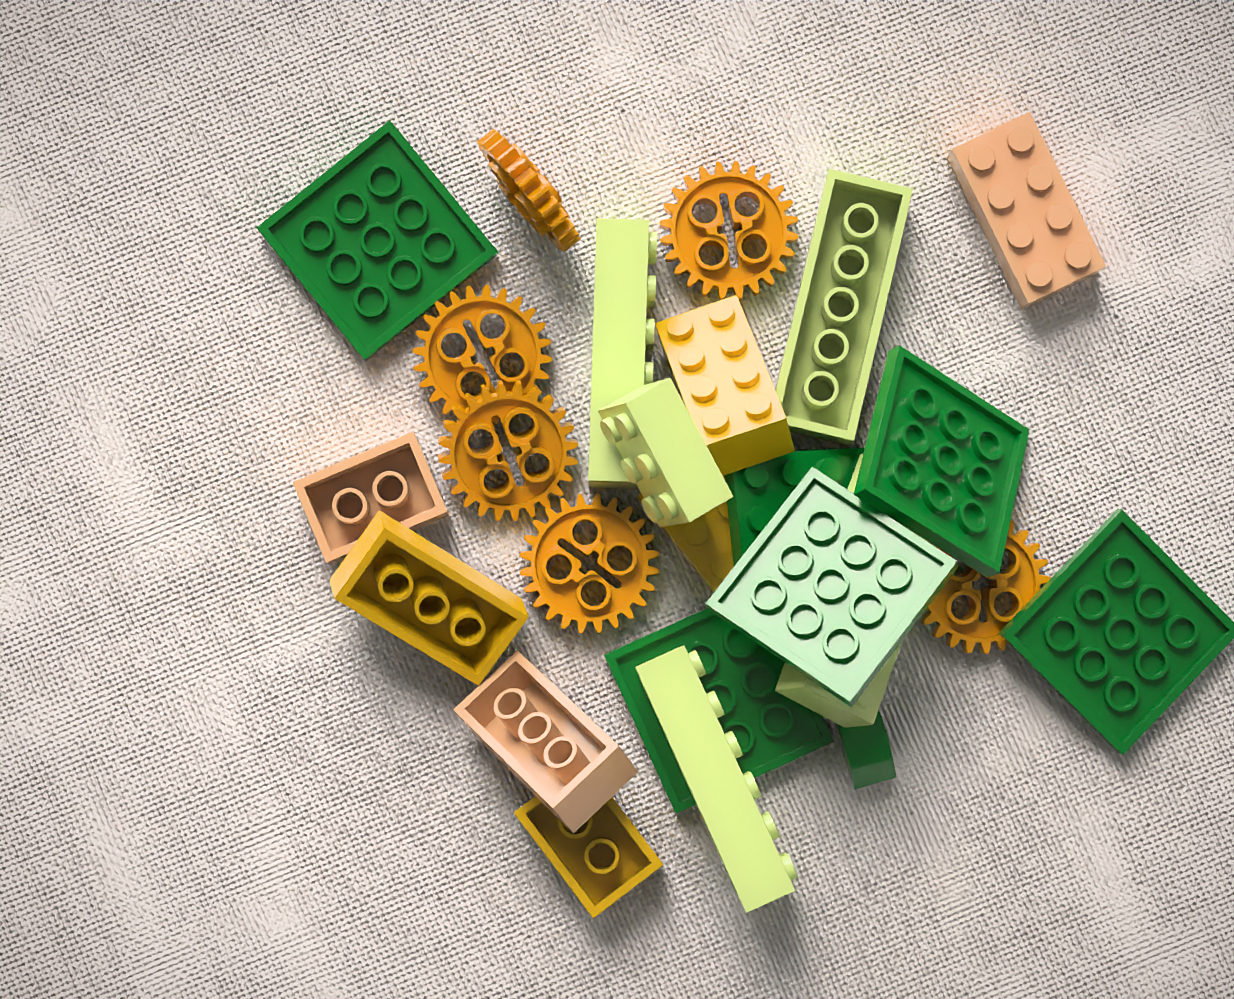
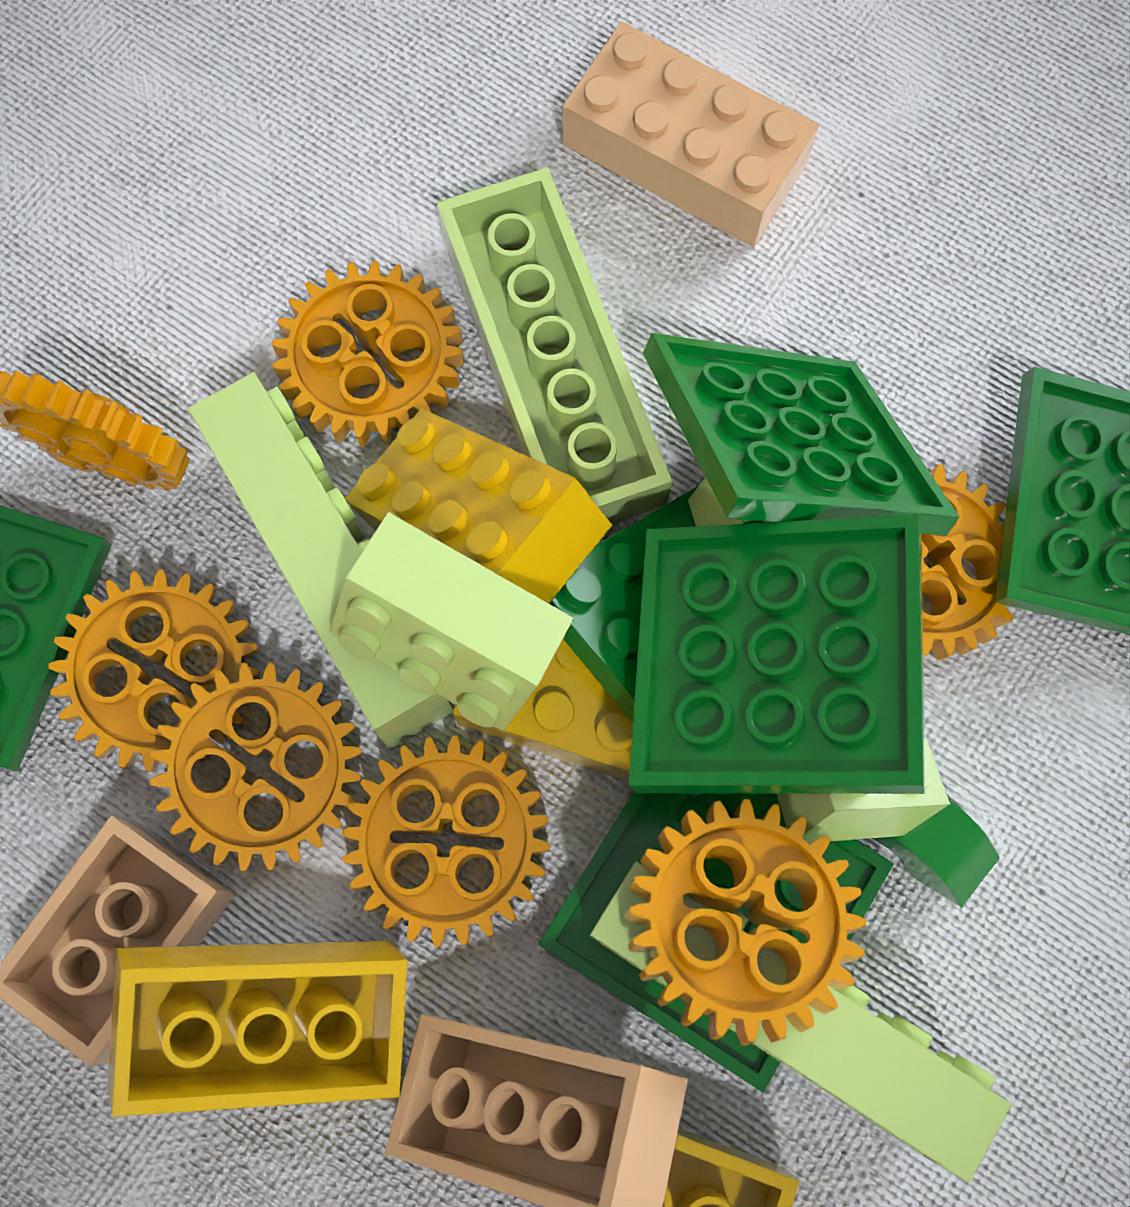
camera: 30 degrees left, 10 degrees down
(690, 737) = (731, 984): none -> light orange gear

